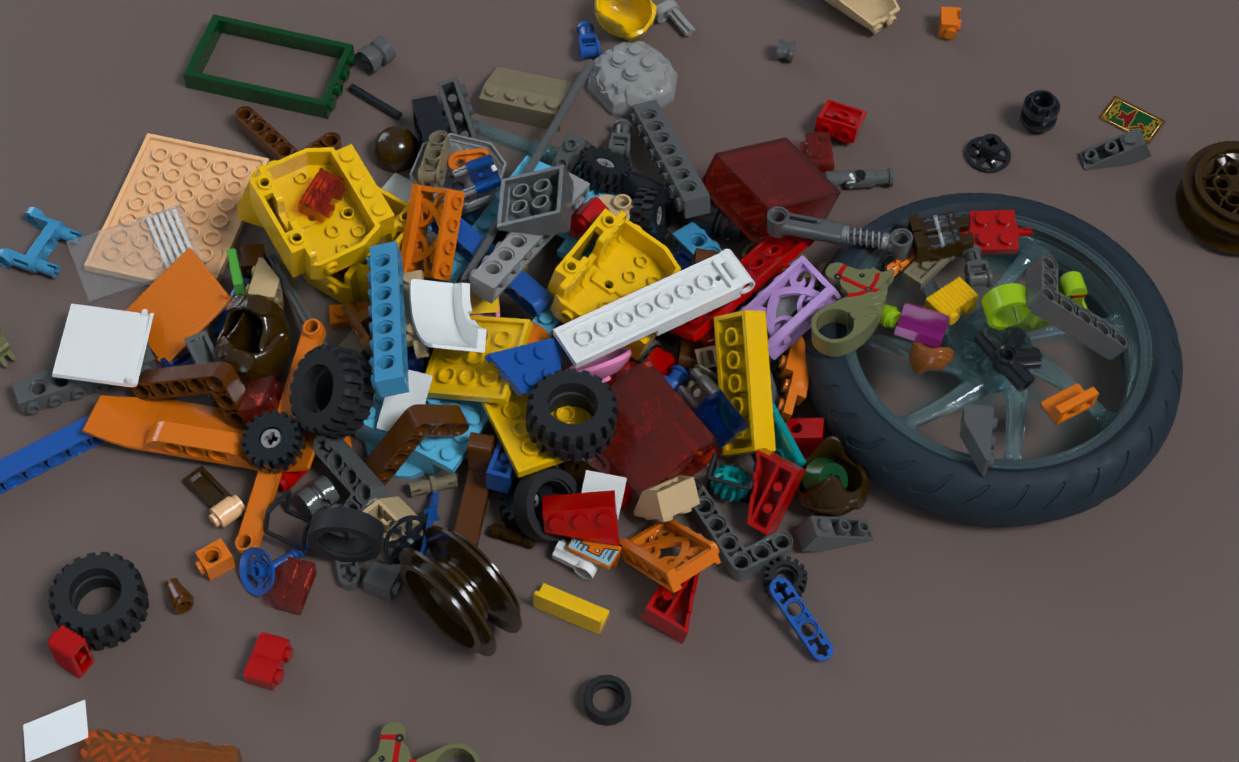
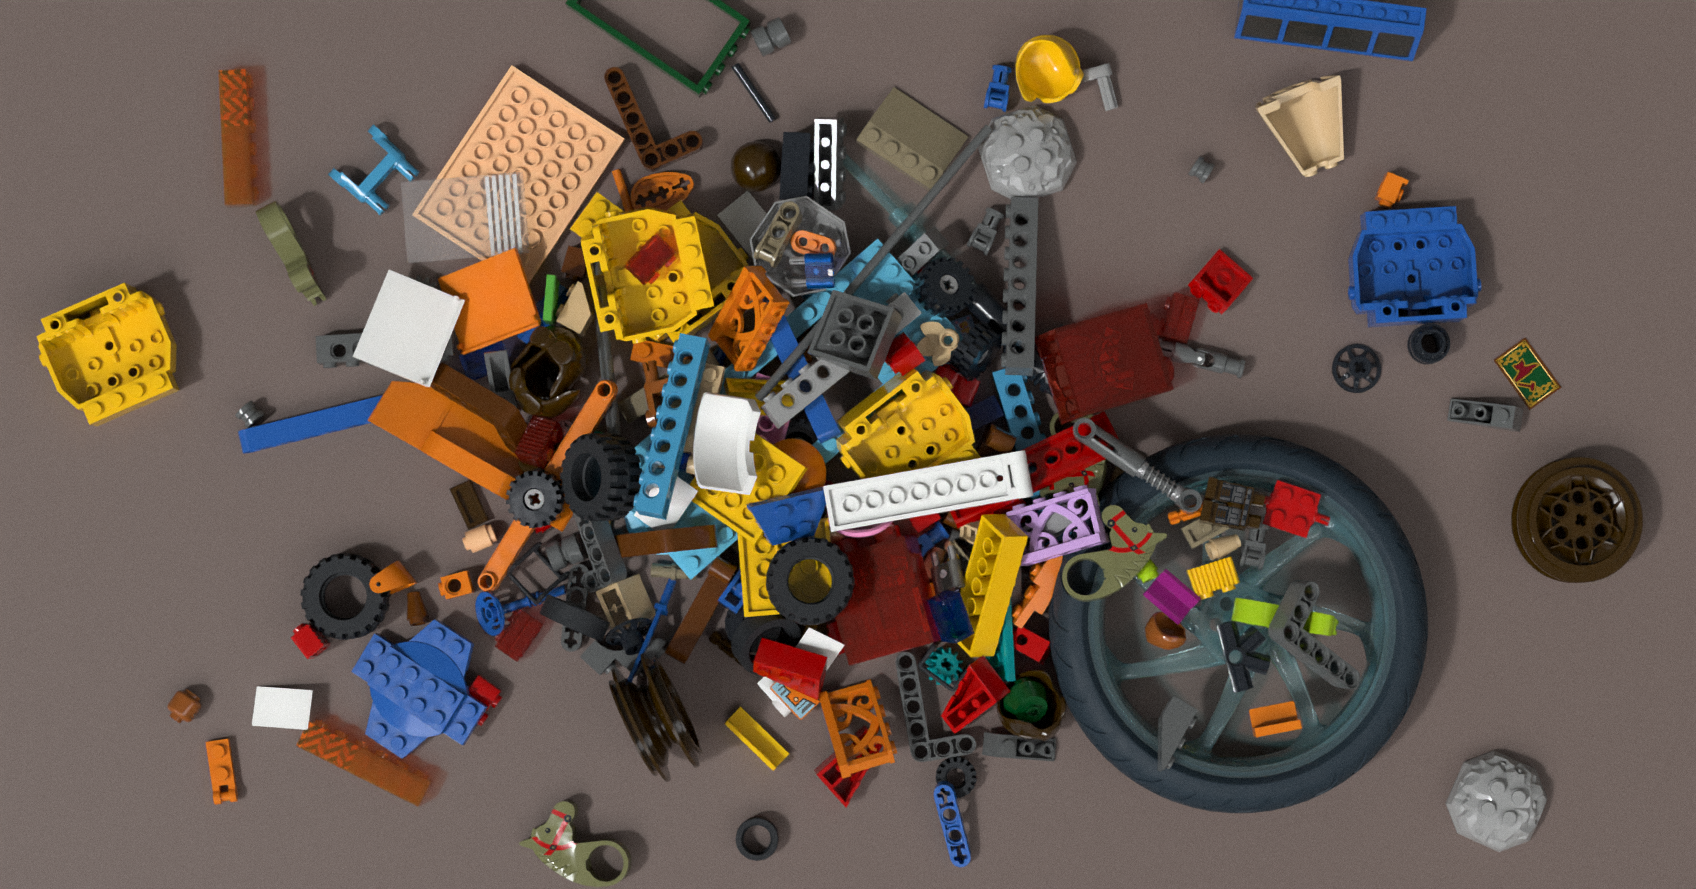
camera: 20 degrees right, 30 degrees up
(155, 566) = (392, 578): none -> orange piece
(201, 665) = (419, 688): none -> blue plate
(668, 499) = (876, 675): tan slope -> none
(945, 276) = (1222, 546): none -> tan cone
(998, 81) = (1441, 269): none -> blue piece

